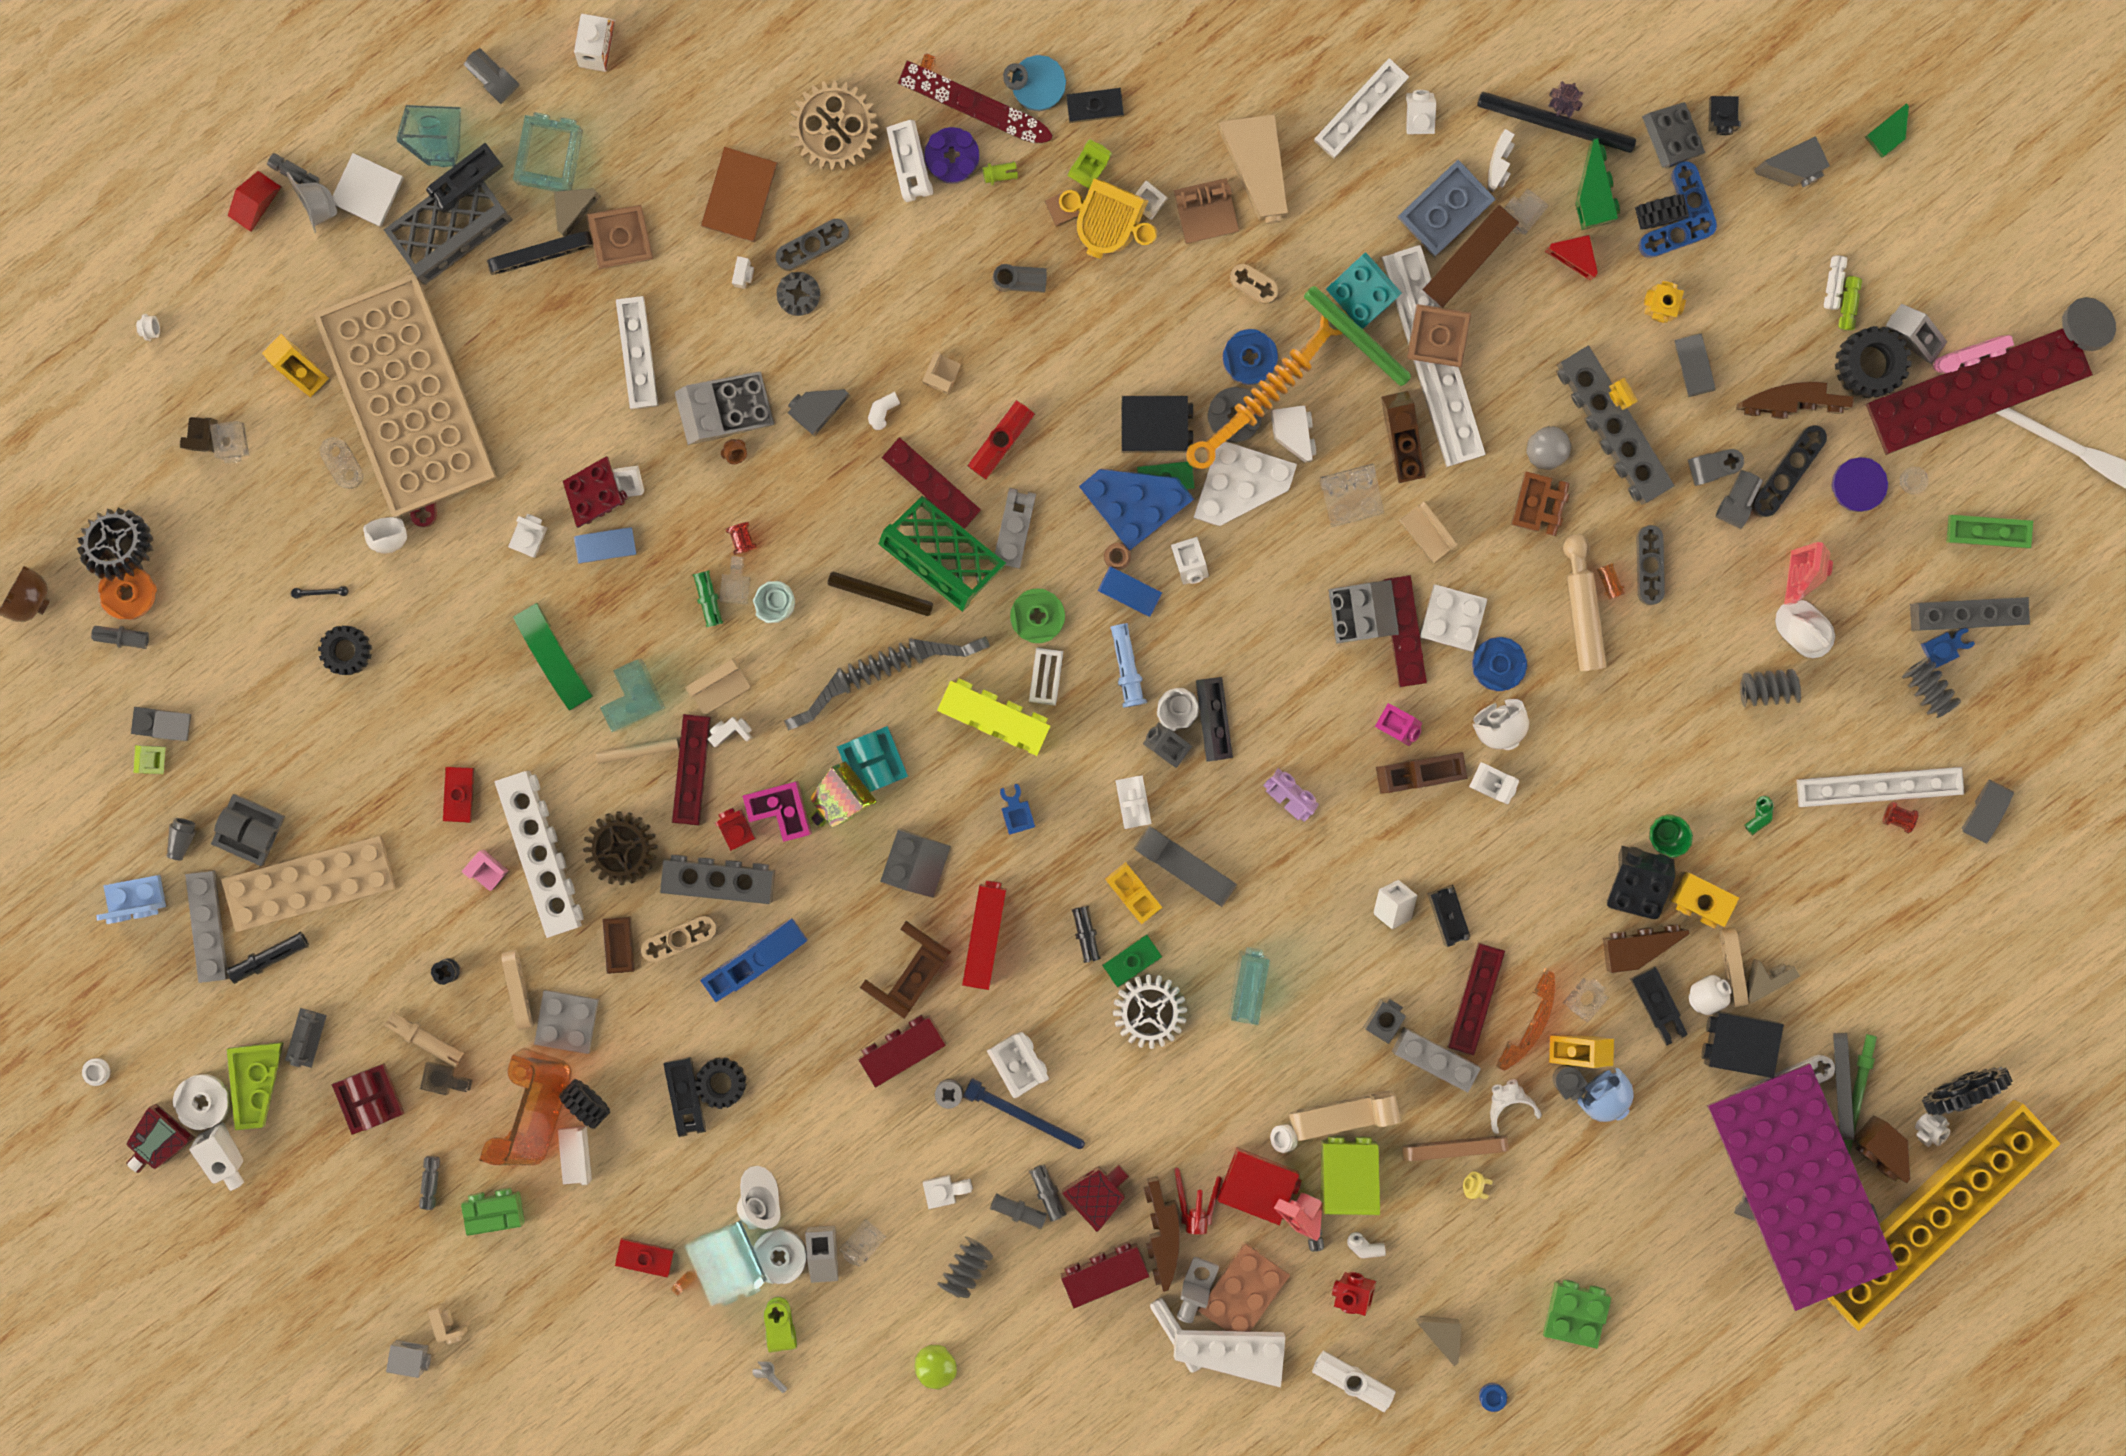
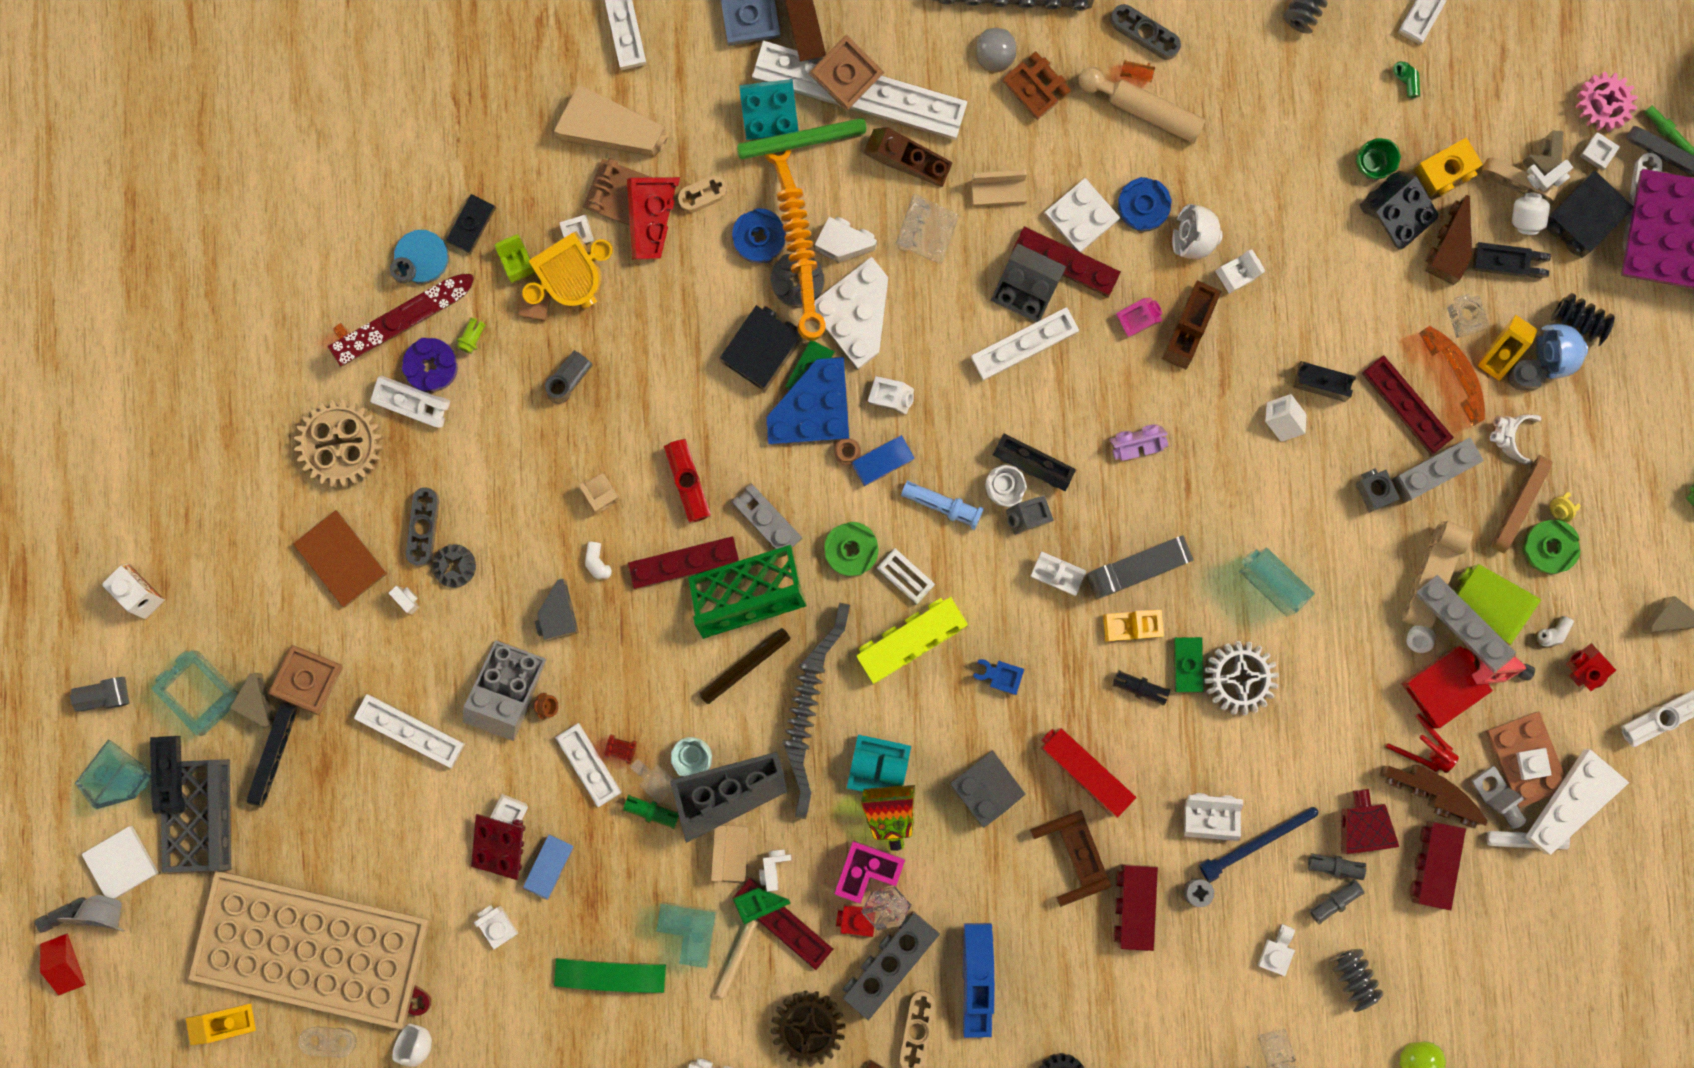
camera: 55 degrees left, 5 degrees down
(693, 739) = (758, 903): none -> green tile
(710, 520) = (588, 765): none -> white tile
(760, 846) = (886, 908): none -> clear brick
(764, 650) = (726, 792): none -> dark grey wedge
(1207, 249) = (649, 211): none -> red wing
(1241, 1298) = (1533, 763): none -> white plate
(1309, 643) = (1025, 344): none -> white plate
(1317, 1166) = (1466, 624): none -> light grey plate
(1423, 1206) = (1536, 548): none -> bright green plate
(1650, 1098) = (1584, 317): none -> black piece
(1754, 996) = (1556, 176): none -> white bracket
(1805, 1018) = (1599, 151): none -> white plate
(1857, 1008) = (1596, 107): none -> bright pink gear

